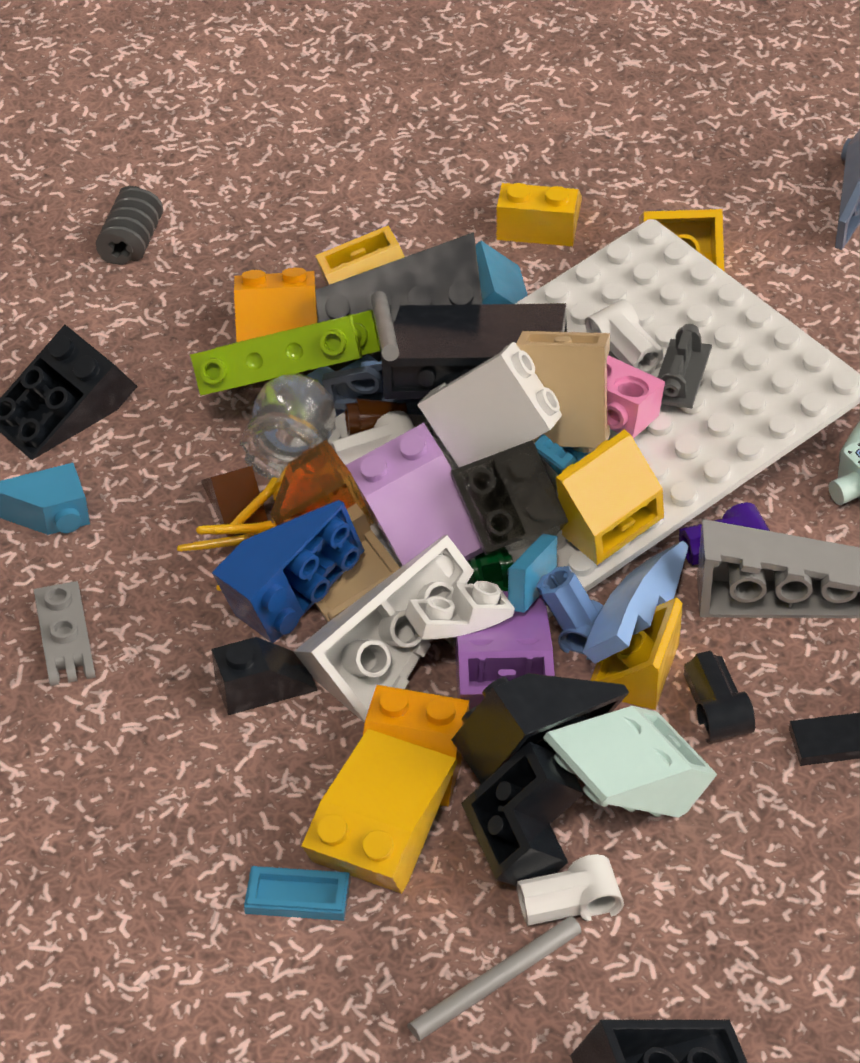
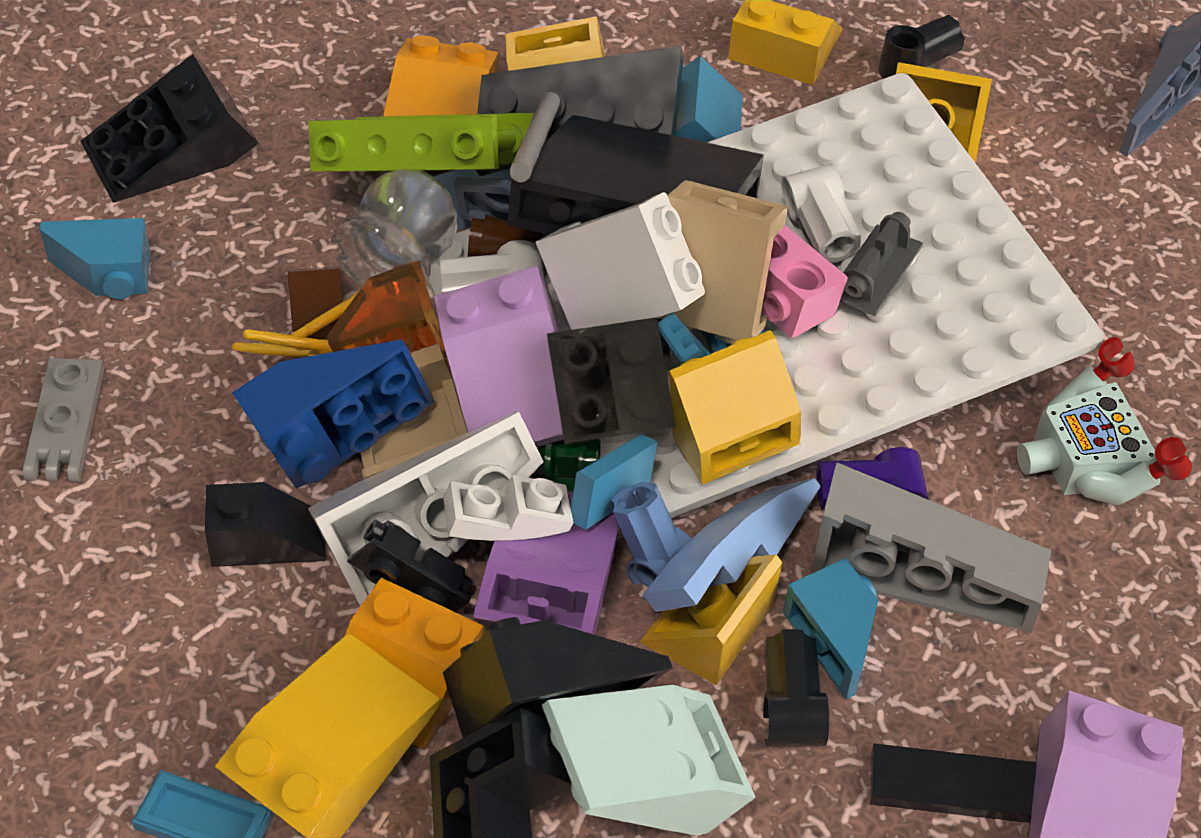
camera: 10 degrees right, 5 degrees up
(379, 667) = (392, 556): none -> black hinge
(650, 195) = (920, 45): none -> black piece
(736, 634) = (839, 613): none -> dark azure slope

